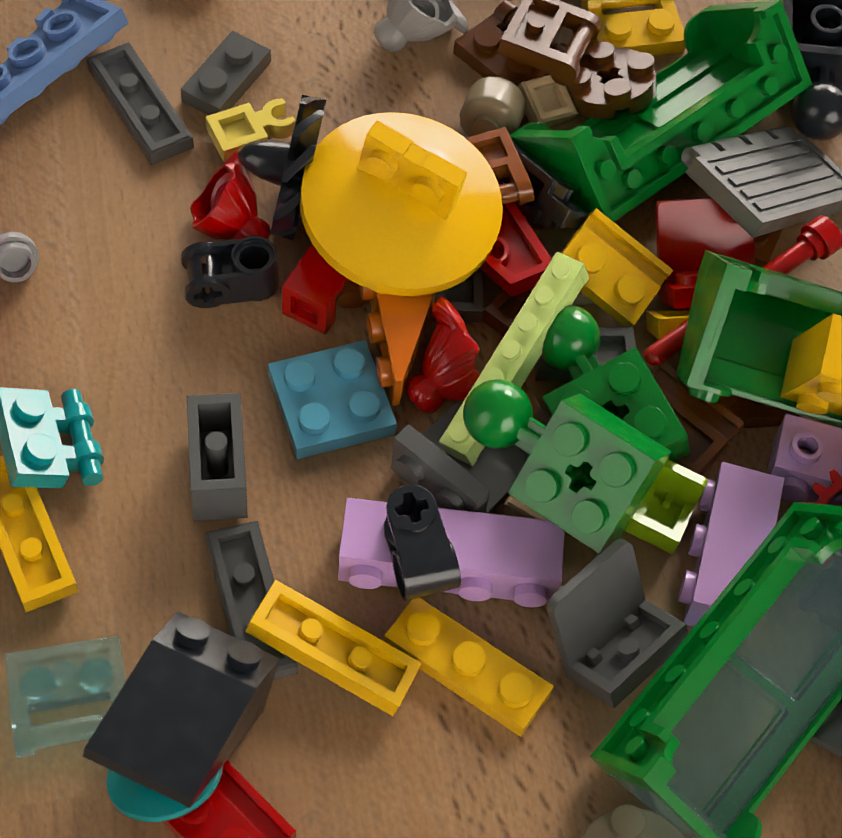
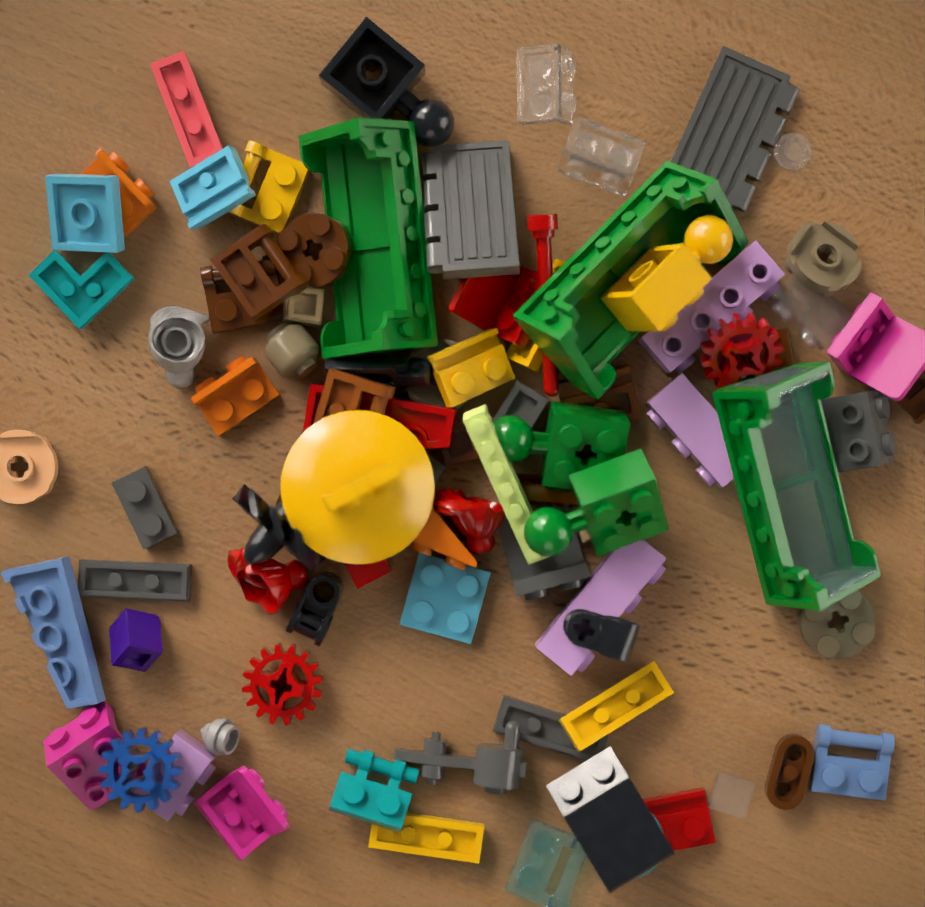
camera: 45 degrees left, 30 degrees up
(73, 125) = (135, 640): none -> dark purple panel
(117, 283) = (299, 688): none -> red gear
(162, 550) = (494, 767): none -> dark grey piece
(216, 457) = (454, 701): dark grey brick -> none
(241, 125) = (204, 530): light yellow plate -> none
(406, 83) = (235, 394): none -> orange bracket
(469, 666) = (676, 629): yellow plate -> none
(608, 629) = (708, 541): dark grey bracket -> none
(667, 507) = (653, 446): lime bracket -> none

